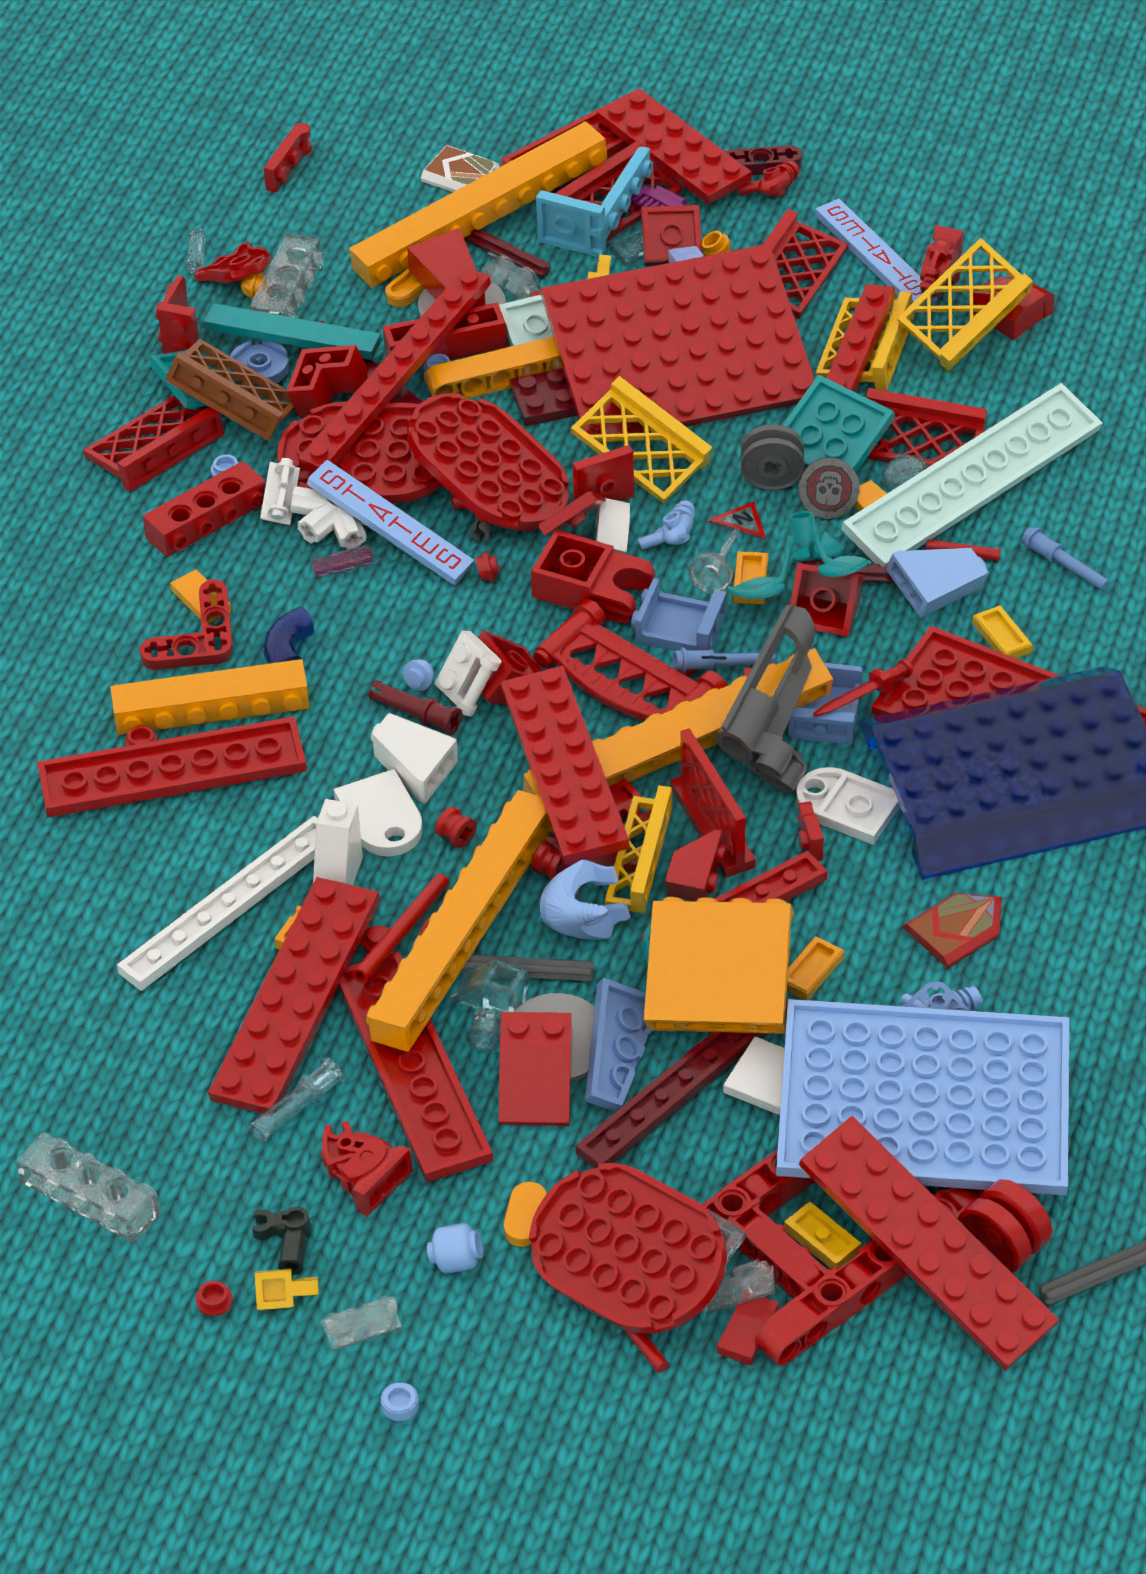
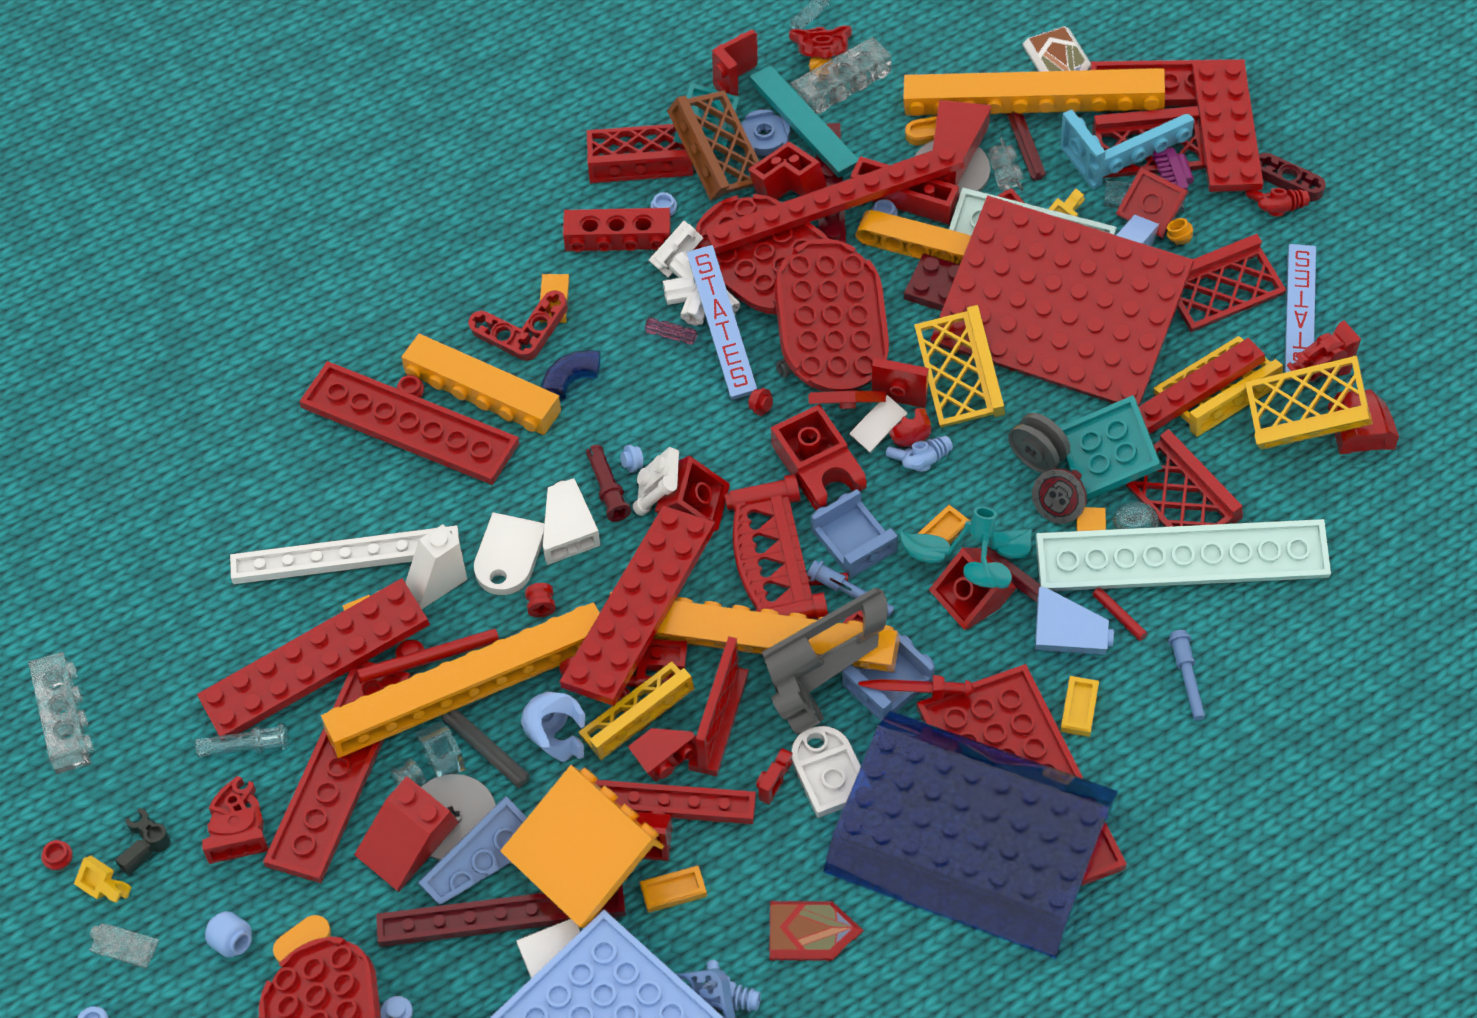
camera: 40 degrees right, 10 degrees up
(650, 512) = (912, 430): none -> red hair
(712, 570) = (975, 479): clear piece -> none

